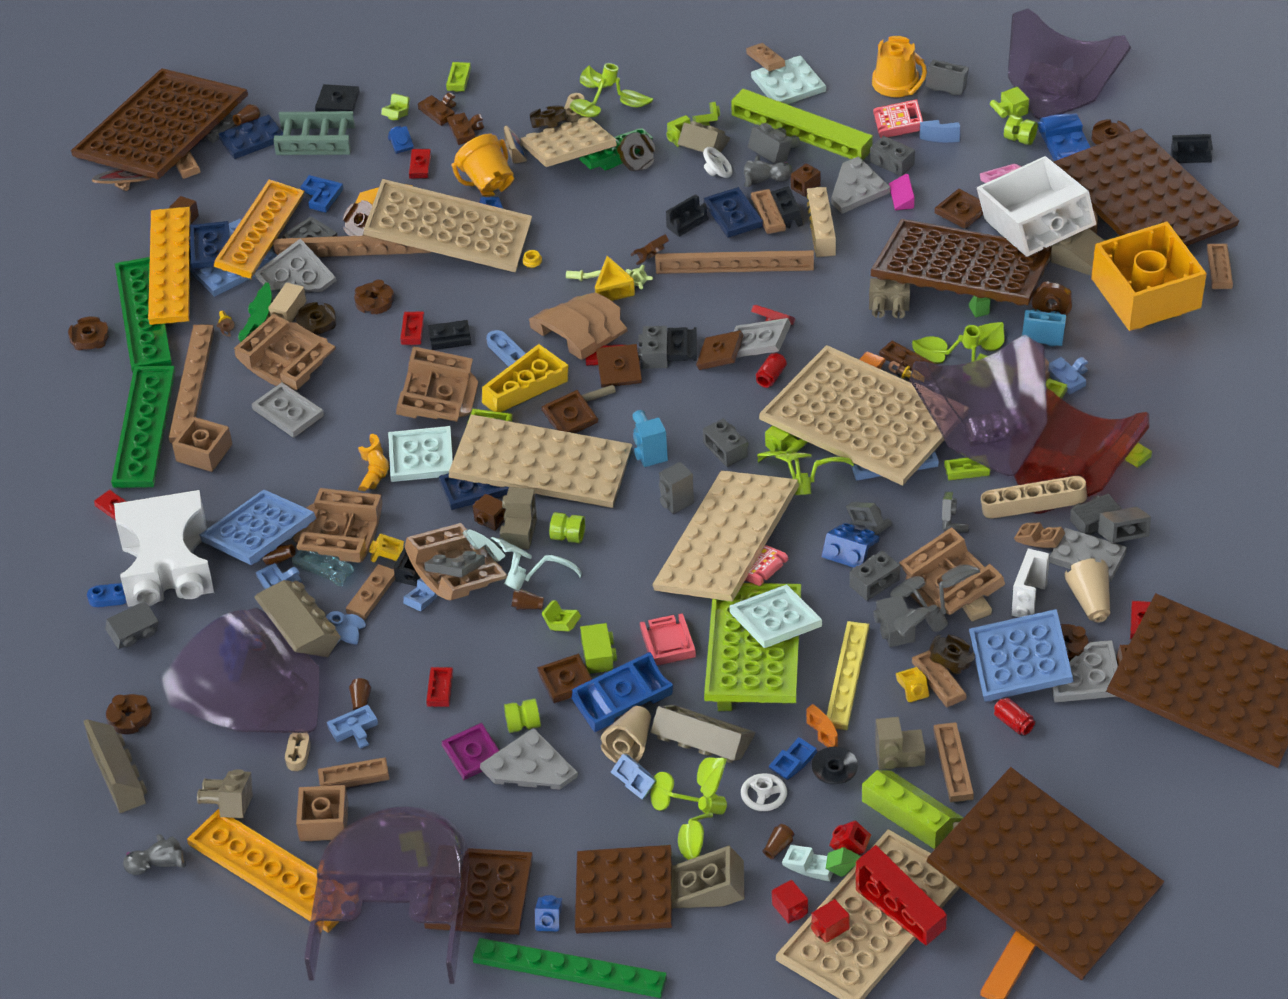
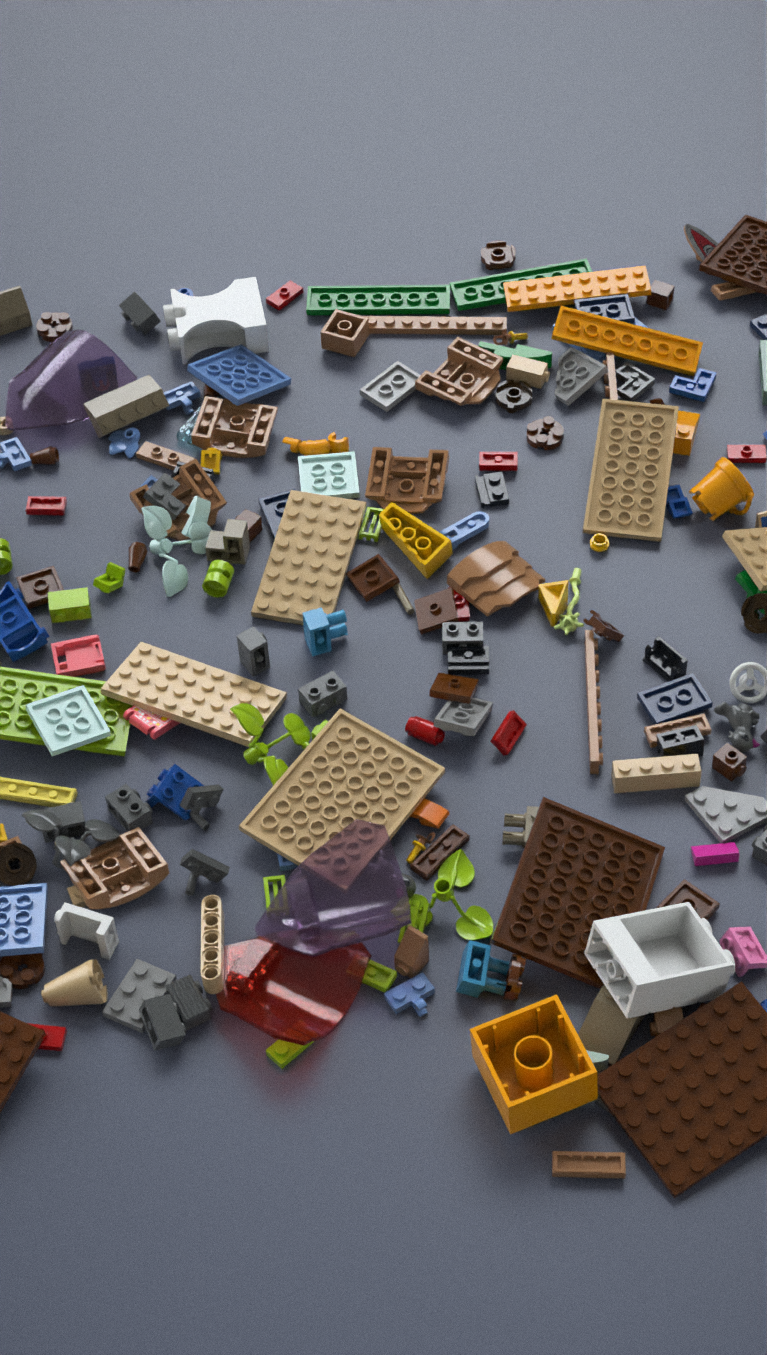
camera: 90 degrees right, 5 degrees up
(1035, 535) = (169, 952): medium nougat slope -> none

